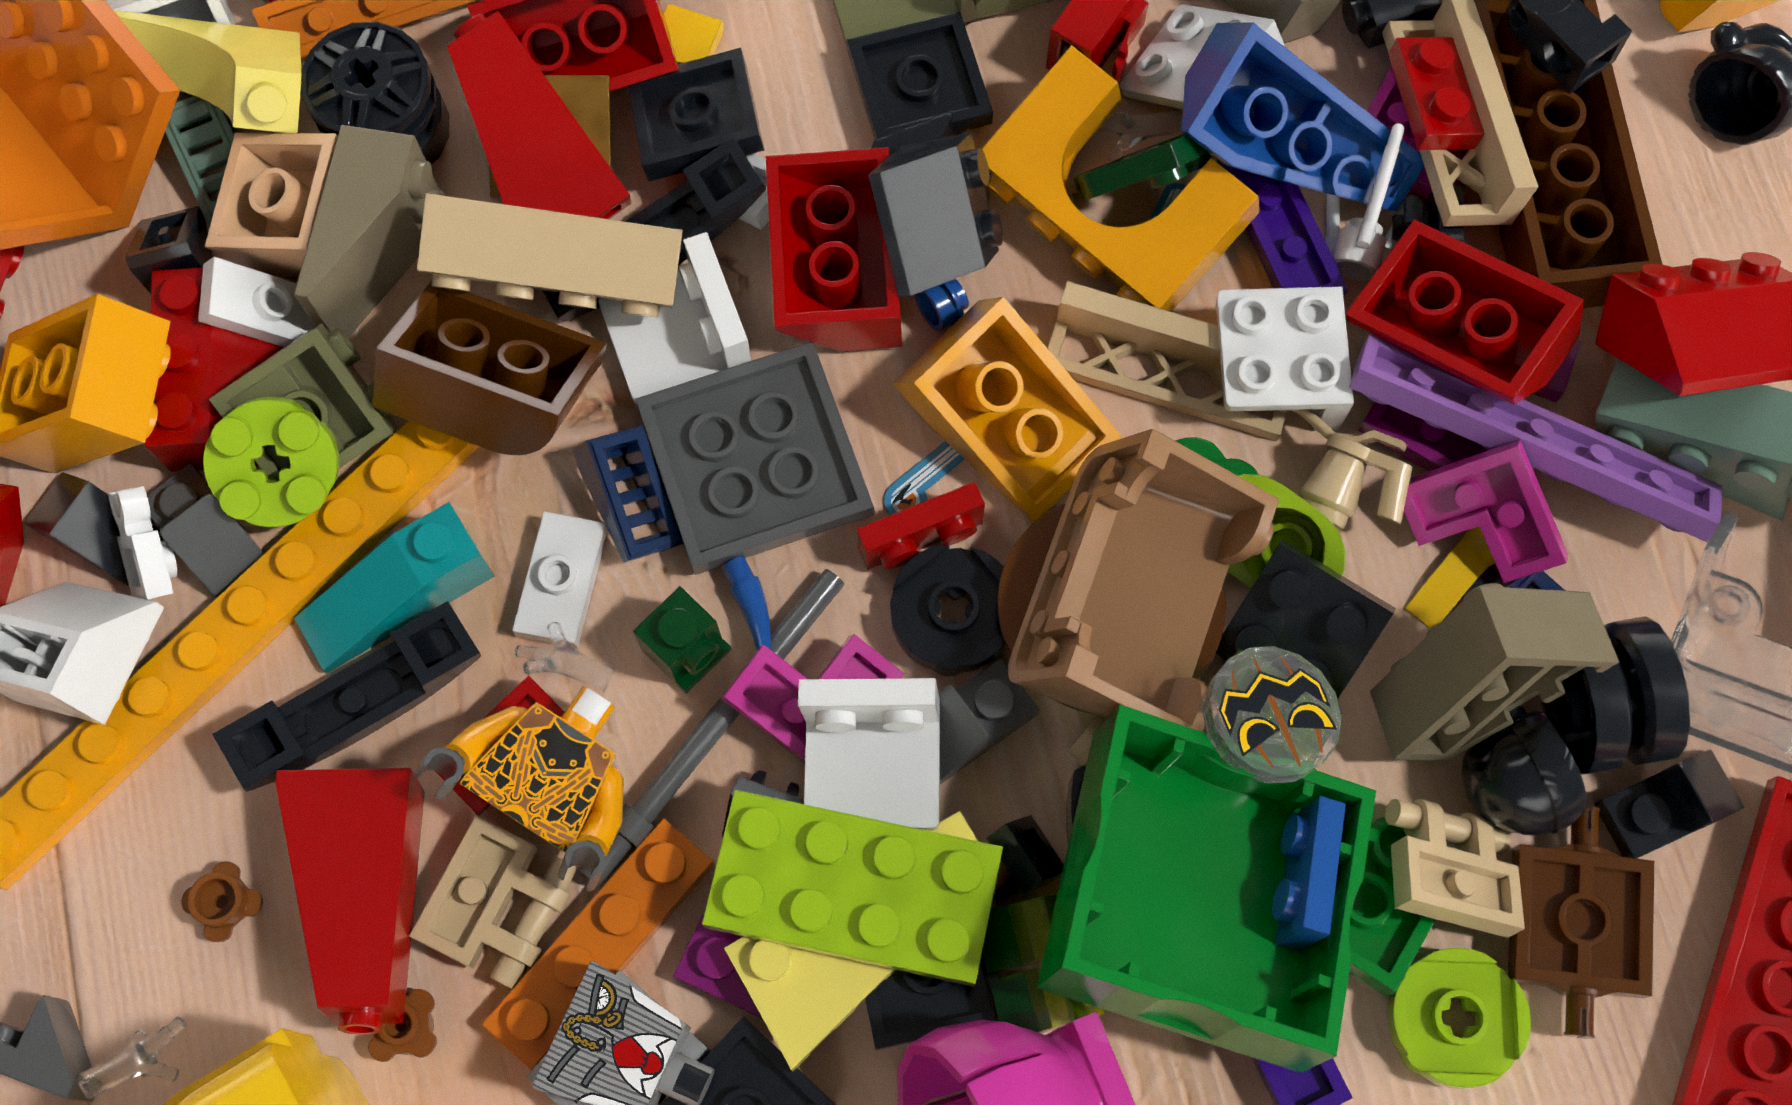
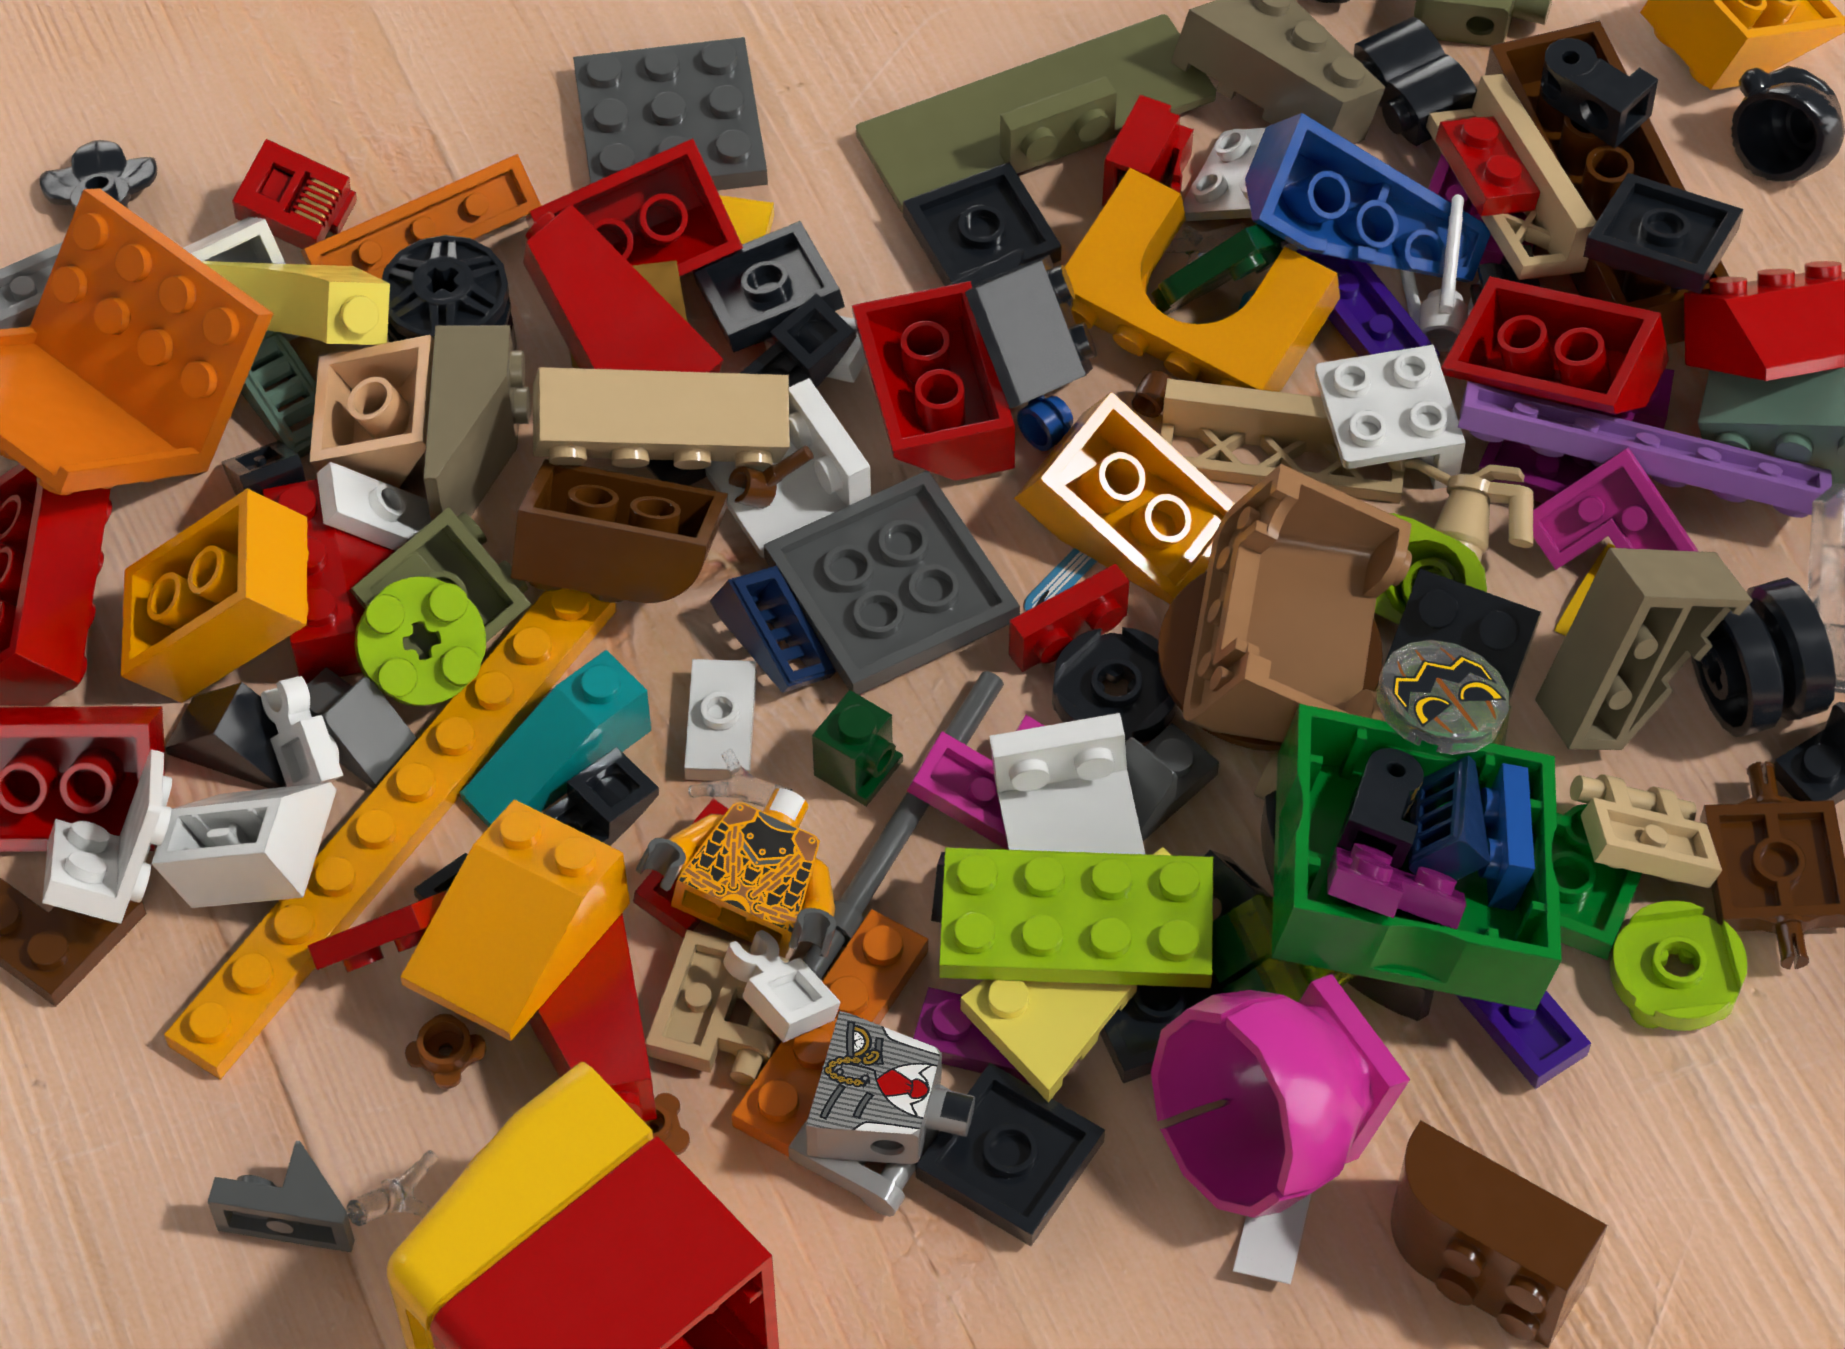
camera: 10 degrees left, 15 degrees down
(172, 776) = (362, 943): none -> red plate
(291, 803) = (517, 919): none -> light orange slope
(551, 913) = (781, 993): none -> white plate
(645, 333) = (762, 485): none -> reddish brown hand
(750, 598) = (911, 706): blue helmet -> none
(1051, 285) = (1151, 394): none -> reddish brown hand
(1159, 932) = (1370, 882): none -> magenta plate
(1177, 831) = (1382, 804): none -> black leg
(1268, 871) = (1455, 834): none -> dark blue slope
(1525, 777) = (1697, 743): black piece -> none
(1603, 206) = (1663, 233): none -> black plate

